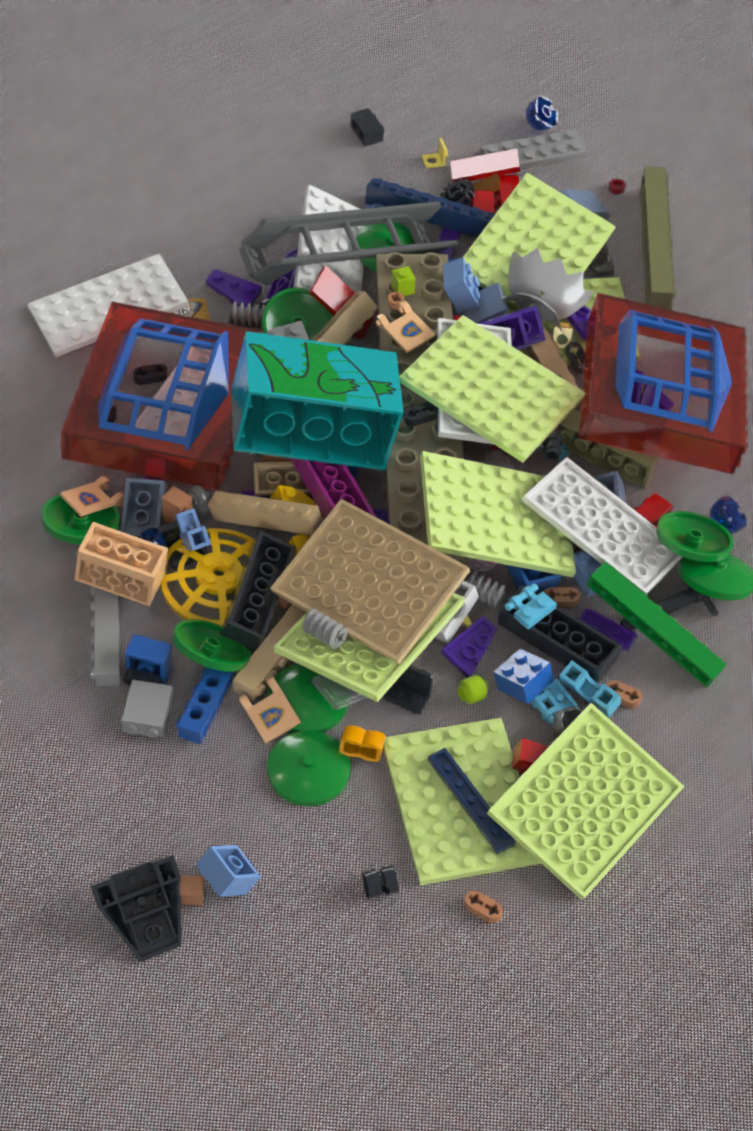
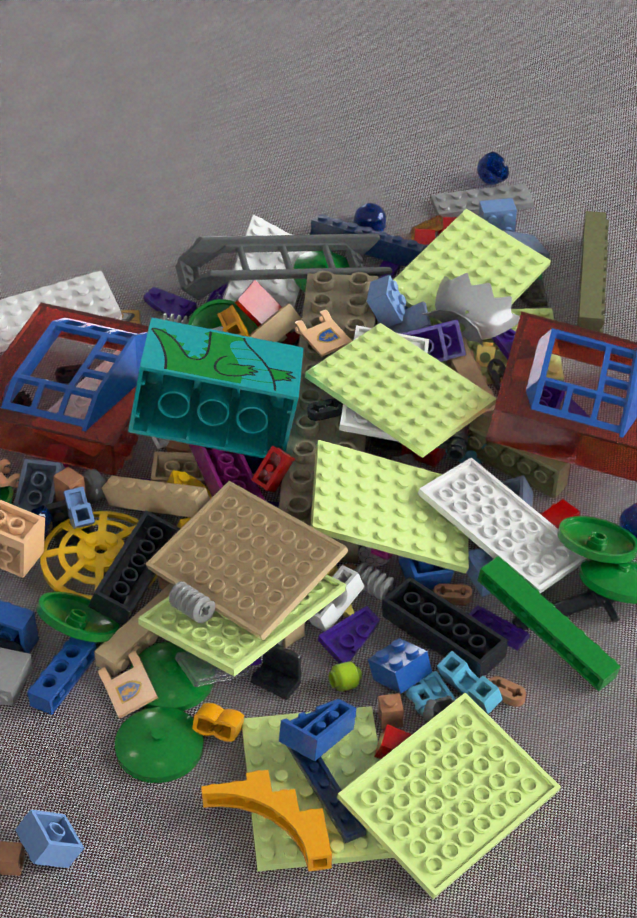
camera: 10 degrees right, 10 degrees down
(311, 320) = (232, 322): none -> light orange arch
(367, 127) = (322, 175): black brick -> none
(378, 882) = (212, 863): black wheel -> none
(380, 482) = (273, 469): none -> red brick
(391, 300) = (315, 309): nougat bush -> none
(403, 281) = (326, 293): lime brick -> none
(411, 815) = (282, 808): none -> light orange arch
(423, 177) = (370, 216): none -> clear blue cylinder
(440, 156) = (390, 202): light yellow bracket -> none
(459, 191) = (405, 228): black gear -> none
(460, 748) = (319, 730): none -> blue wedge
(483, 906) = (322, 898): nougat beam -> none
(486, 165) = (429, 209): tile -> none
(520, 722) = (390, 710): none -> nougat brick
(534, 610) = (417, 601): medium azure plate -> none
(555, 171) = (499, 213): none -> medium blue brick
(617, 186) = (560, 232): dark red tile -> none

